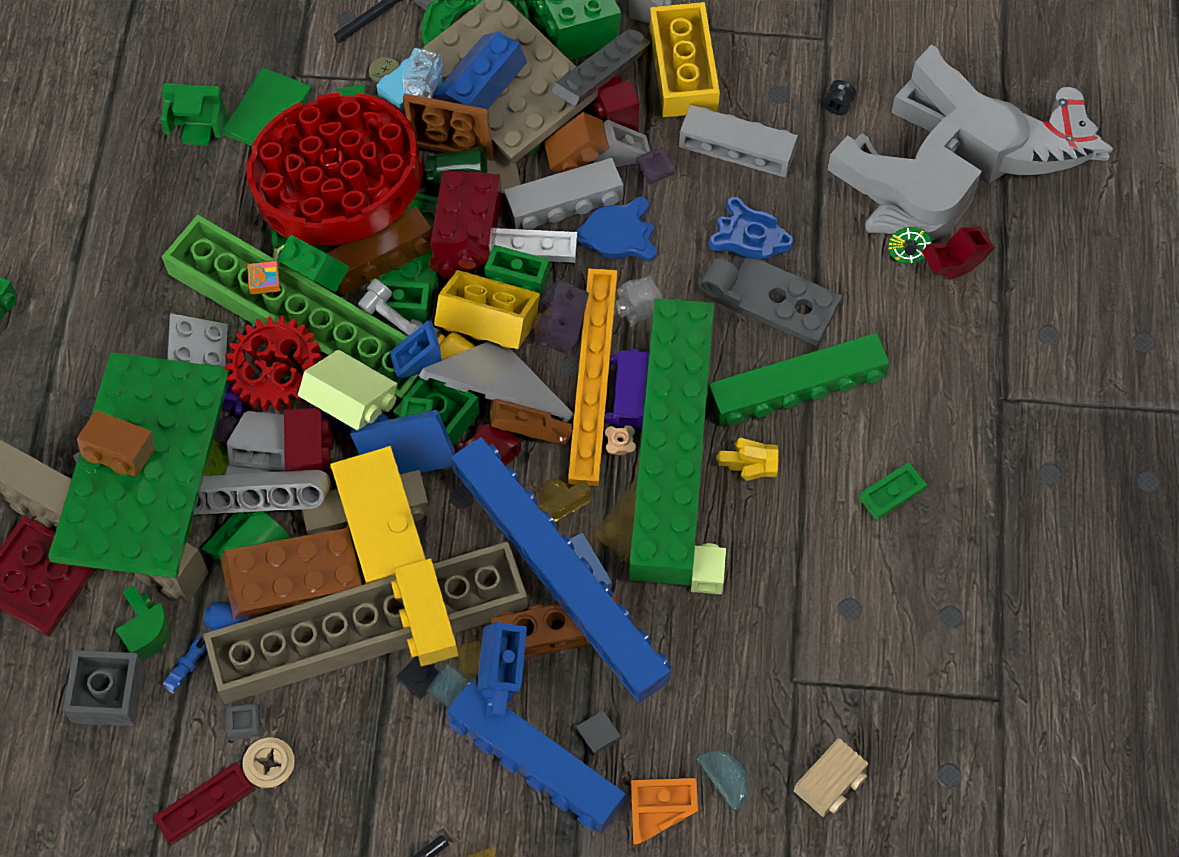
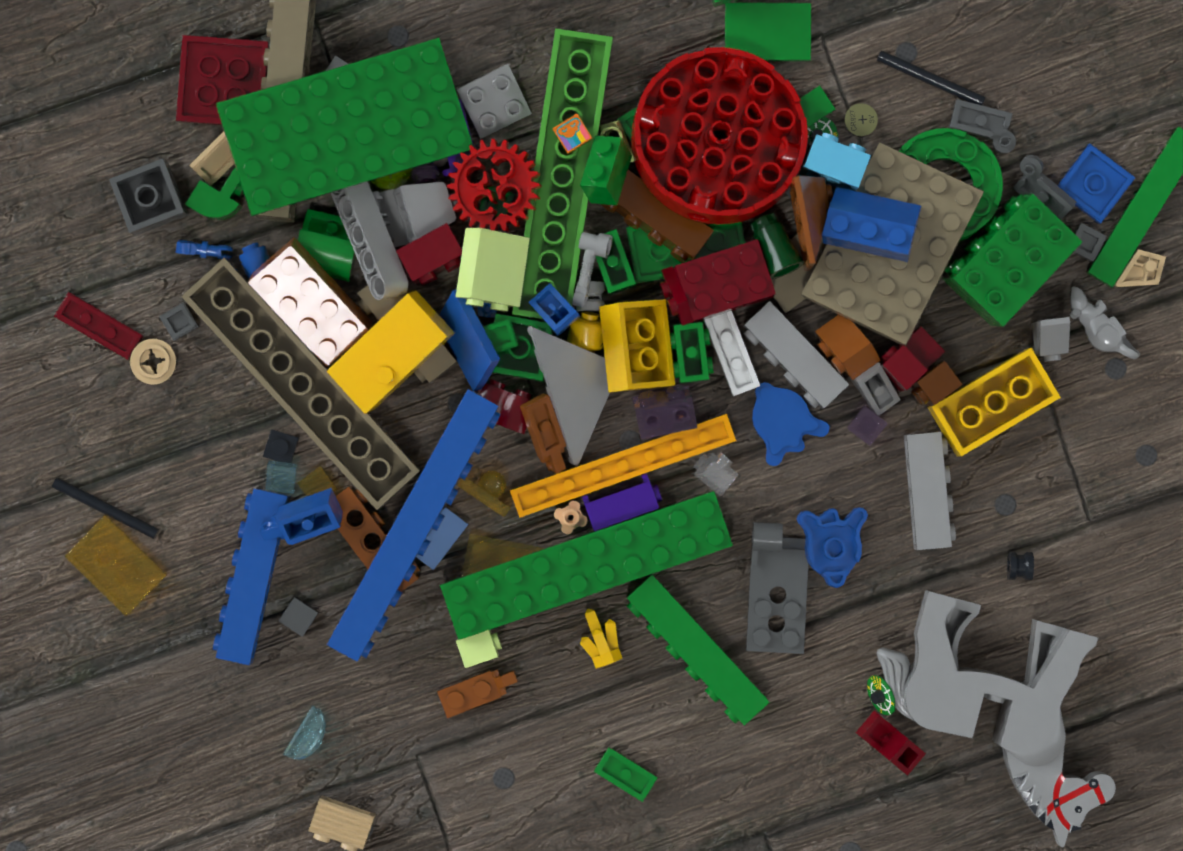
camera: 65 degrees right, 25 degrees up
(103, 606) = (213, 160): none -> tan tile
(115, 444) = (339, 102): dark orange brick -> none
(422, 73) = (839, 175): clear brick -> none
(424, 613) = (318, 435): yellow brick -> none
(601, 67) = (936, 335): dark grey plate -> none
(648, 89) = (935, 385): none -> reddish brown brick
(660, 805) = (259, 694): orange wing -> none
(751, 596) = (475, 691): none -> dark orange hinge

